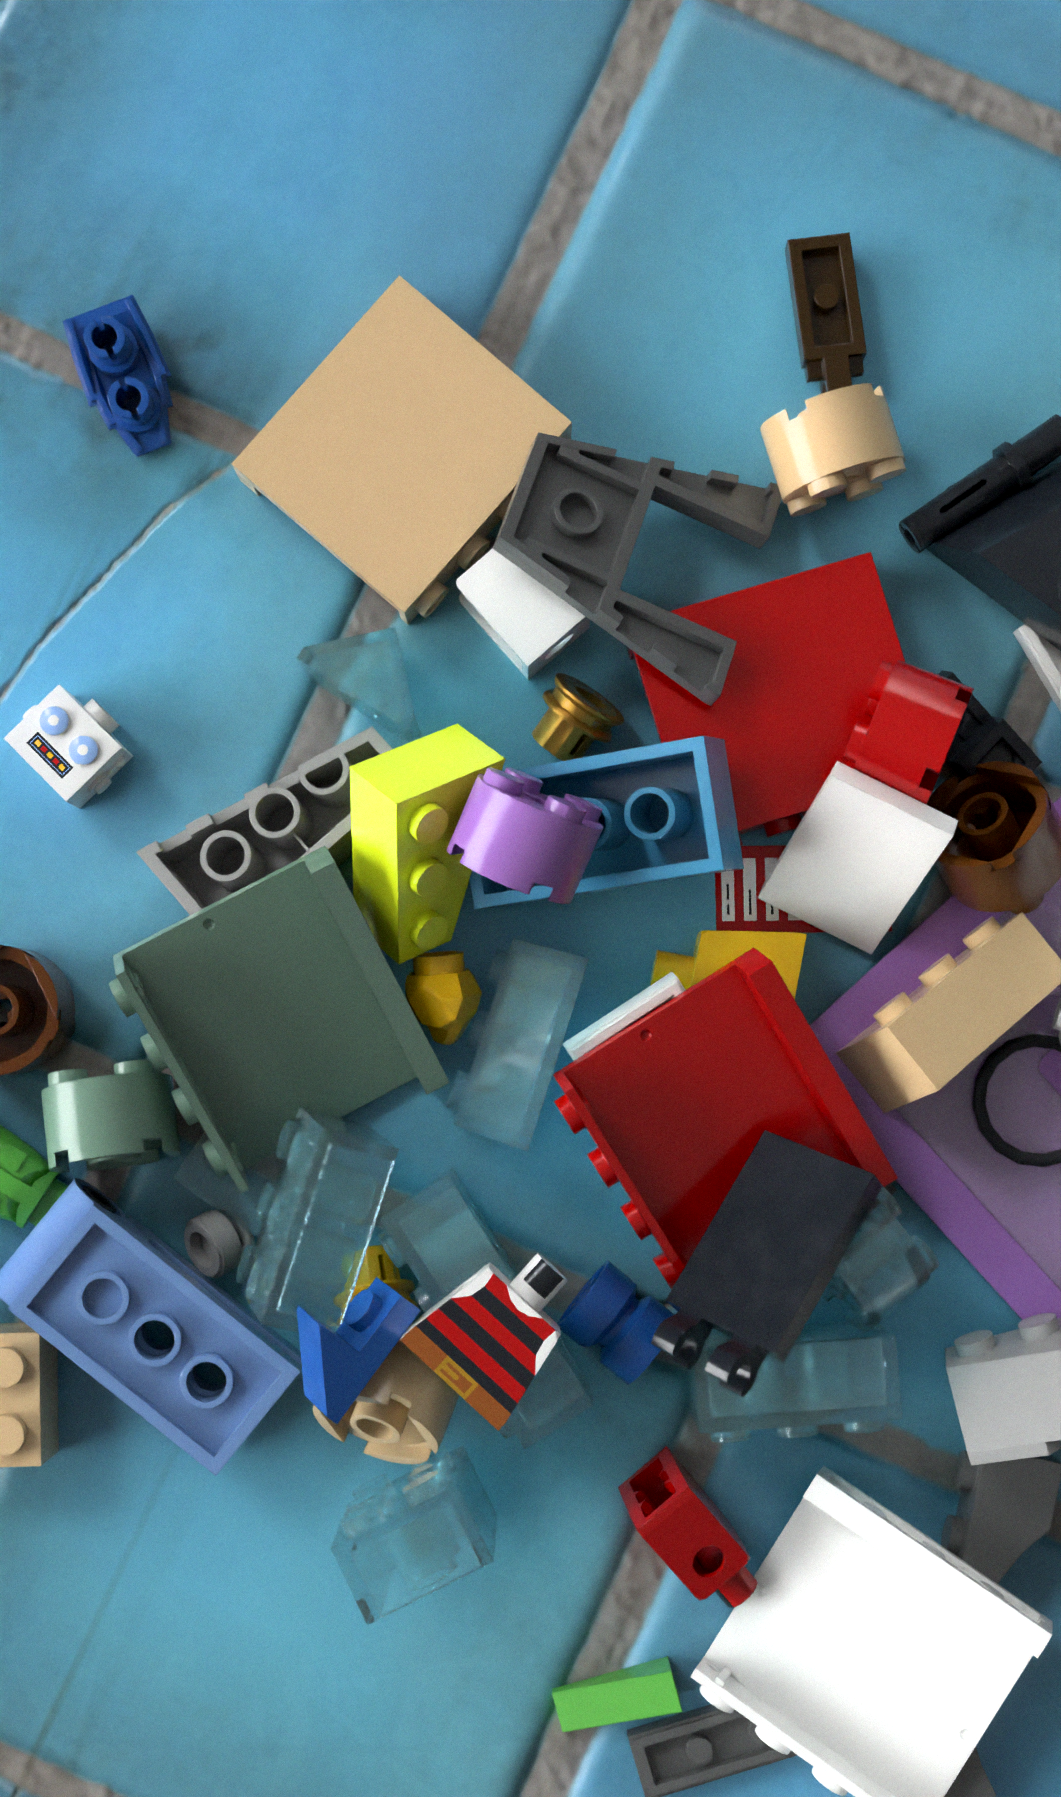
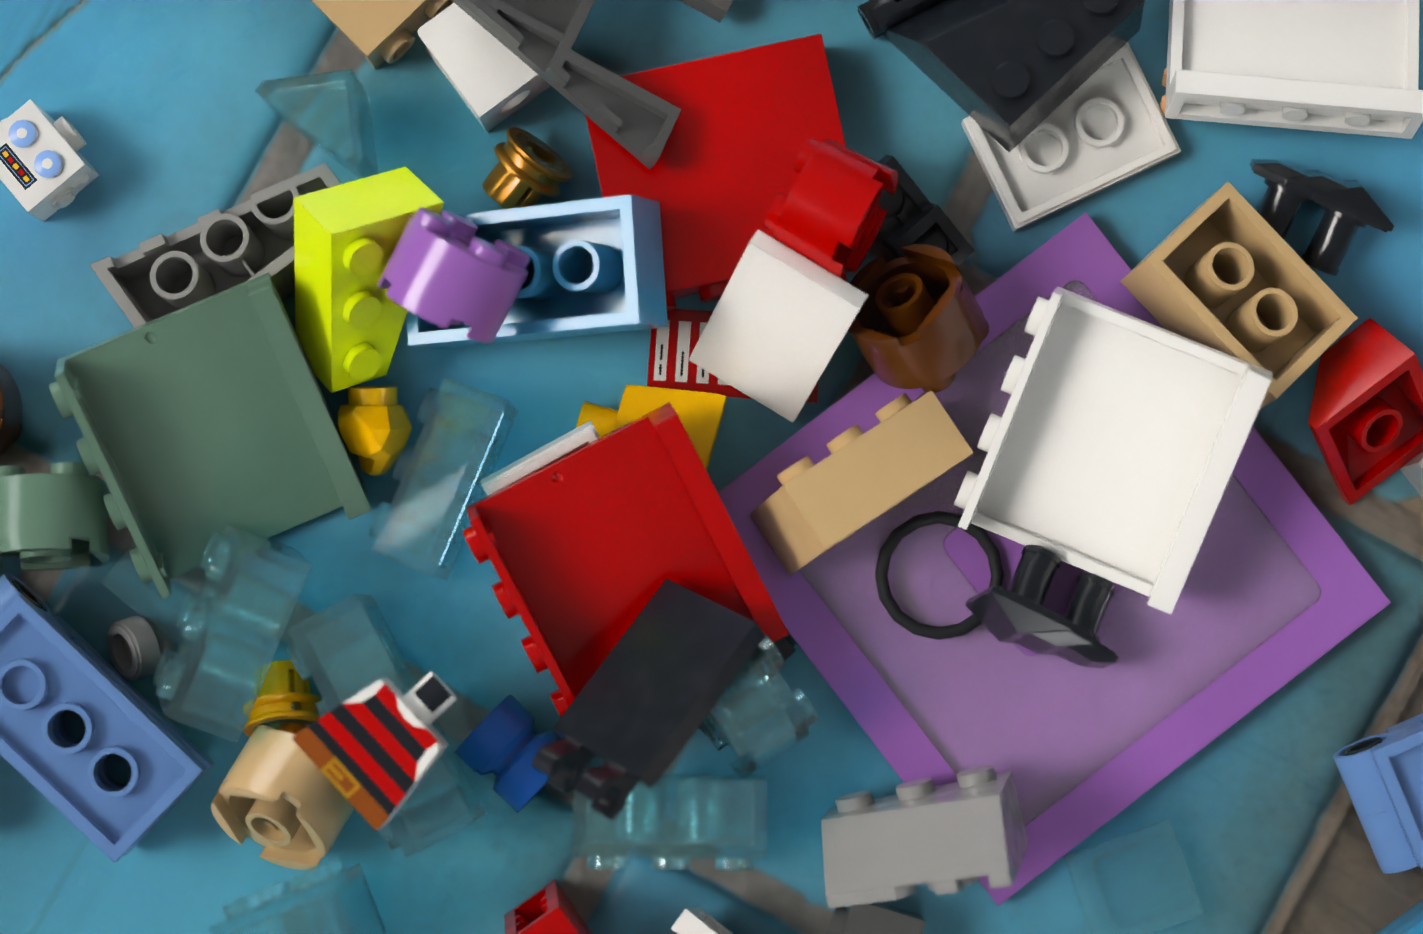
camera: 10 degrees right, 0 degrees up
(344, 1361) = (237, 759): blue slope -> none

